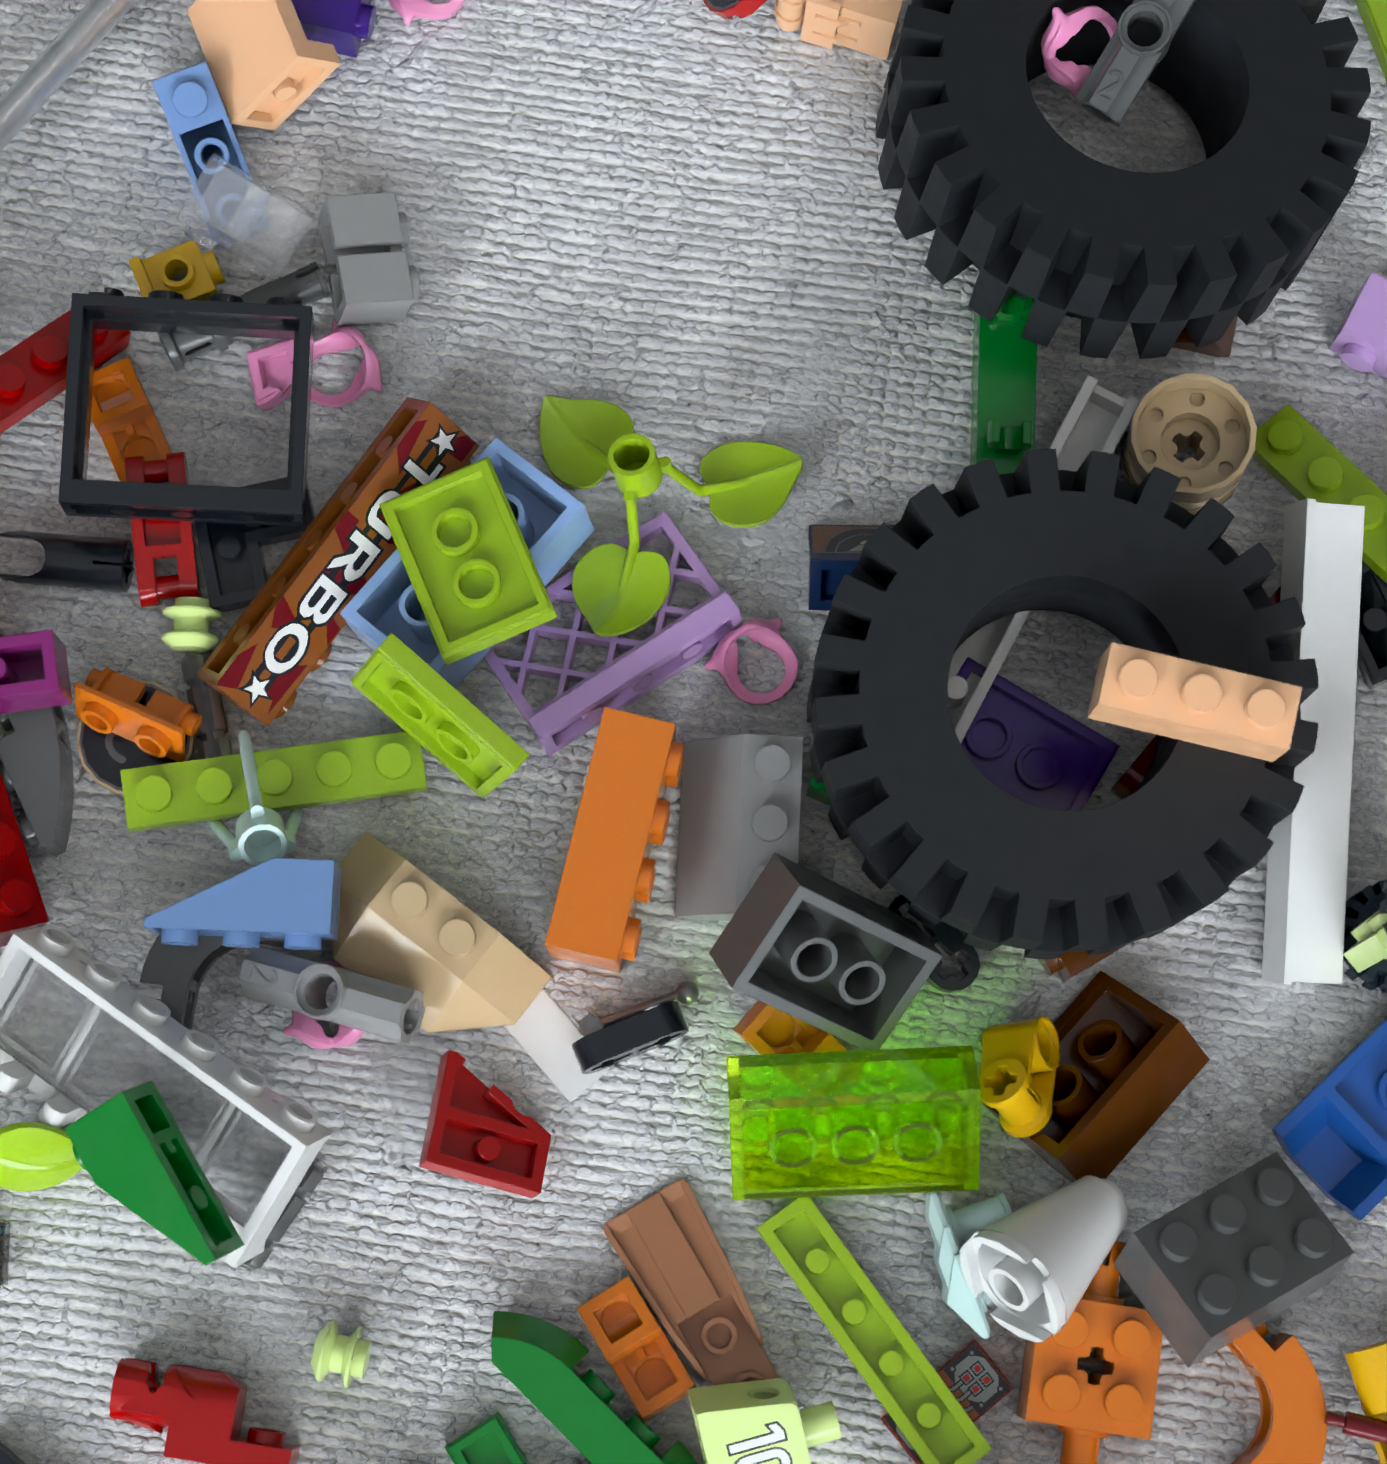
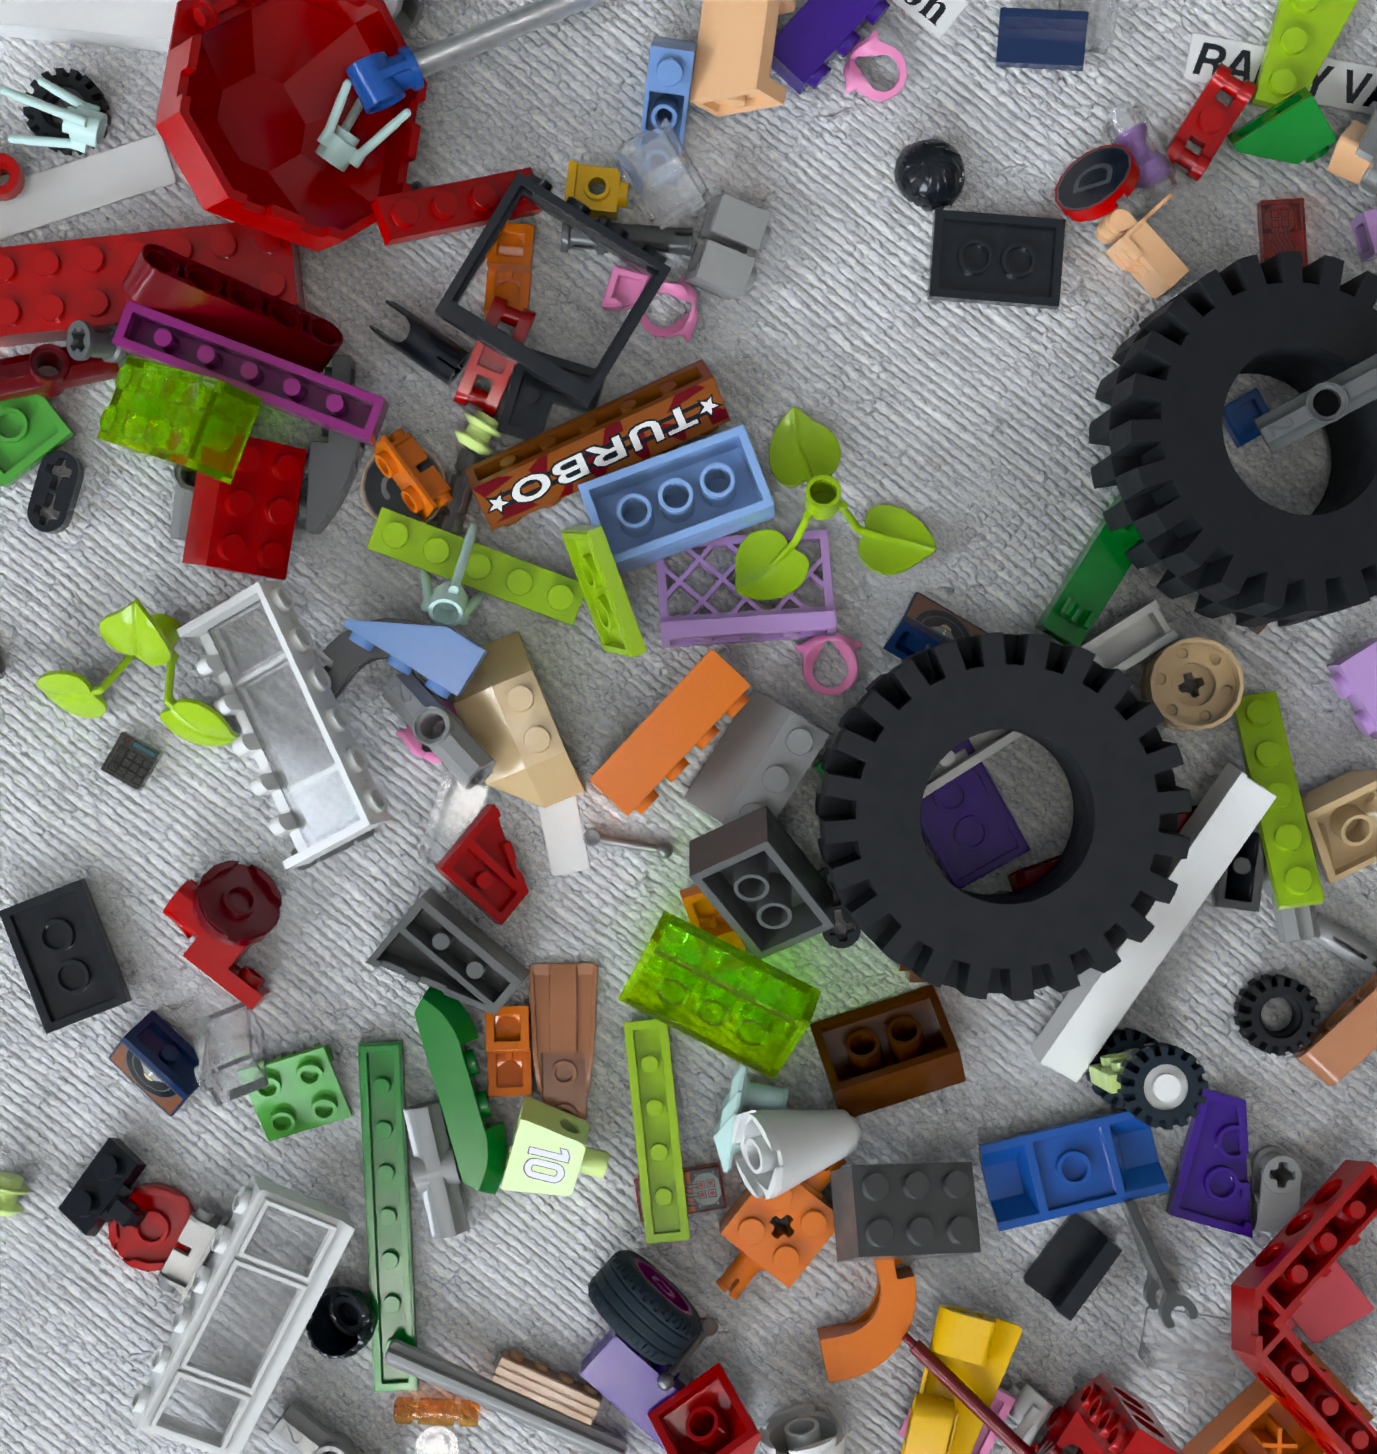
camera: 30 degrees right, 10 degrees up
(148, 1167) = (265, 778): green slope -> none
(198, 1352) = (237, 903): none -> dark red tile
(340, 1353) = (324, 952): yellowish green wheel -> none
(468, 561) = (678, 499): lime tile -> none
(495, 1264) = (450, 954): none -> dark grey wedge
(553, 60) = (930, 174): none -> black hair
(630, 1037) = (612, 859): black beam -> none
(681, 109) = (996, 259): none -> black plate
(1020, 1073) = (842, 1022): yellow piece -> none
(1059, 32) = (1273, 367): bright pink piece -> none
(1072, 121) = (1240, 416): none -> blue tile
(1194, 702) = (1082, 872): light nougat brick -> none

